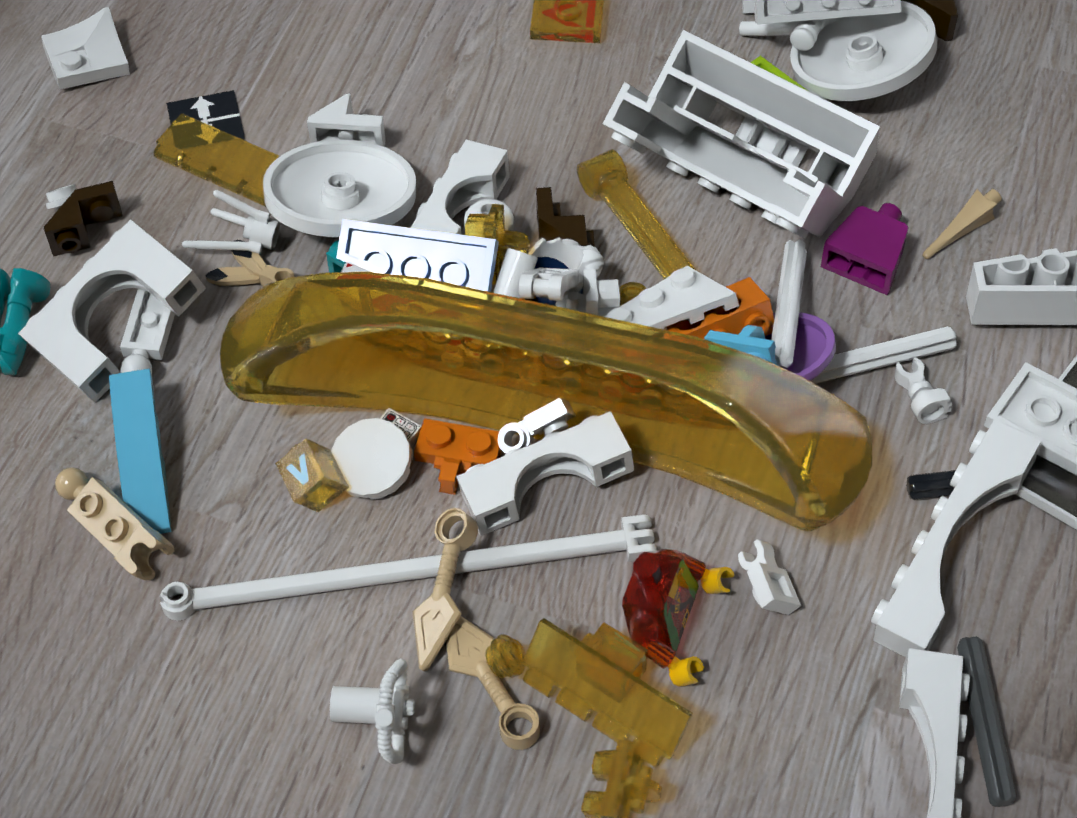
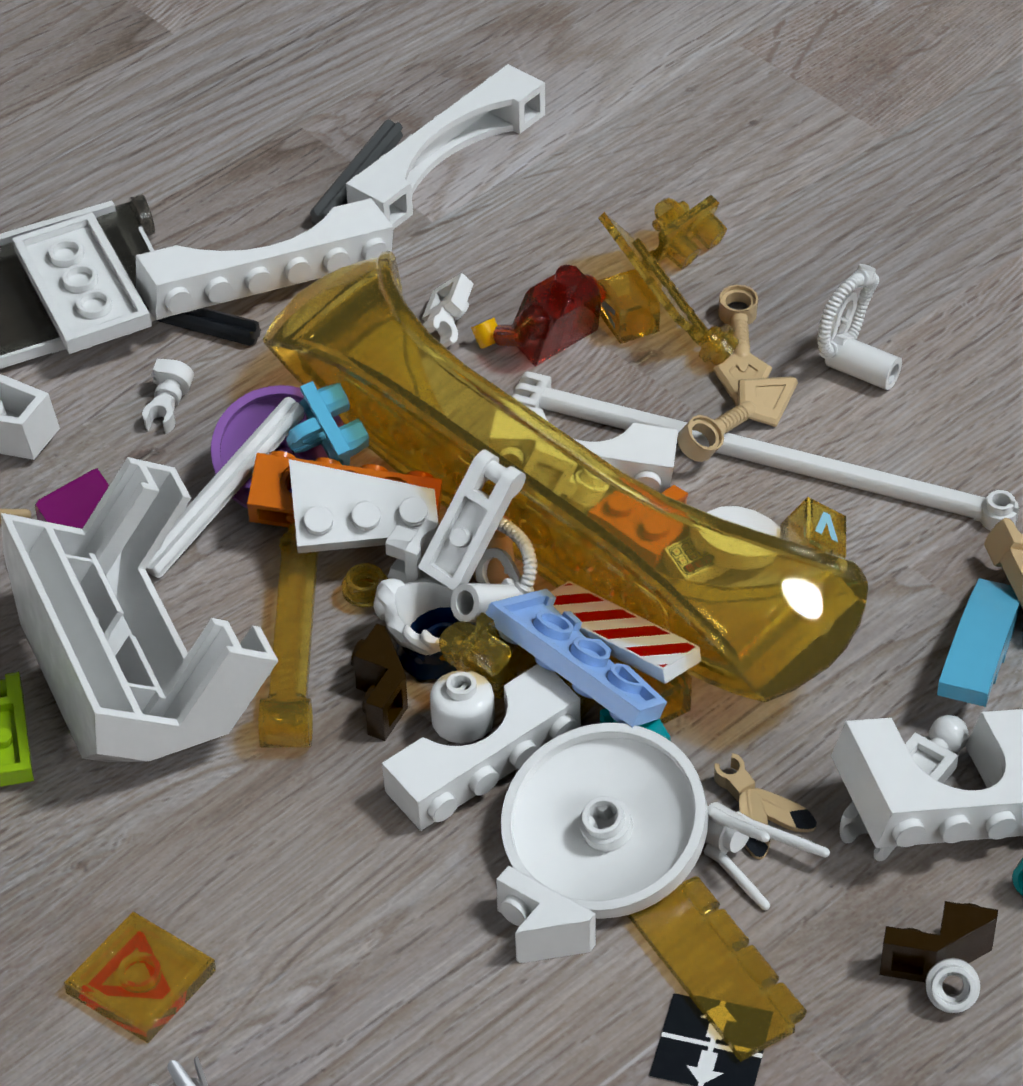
camera: 150 degrees left, 10 degrees down
(888, 353) = (149, 435): white axle -> none

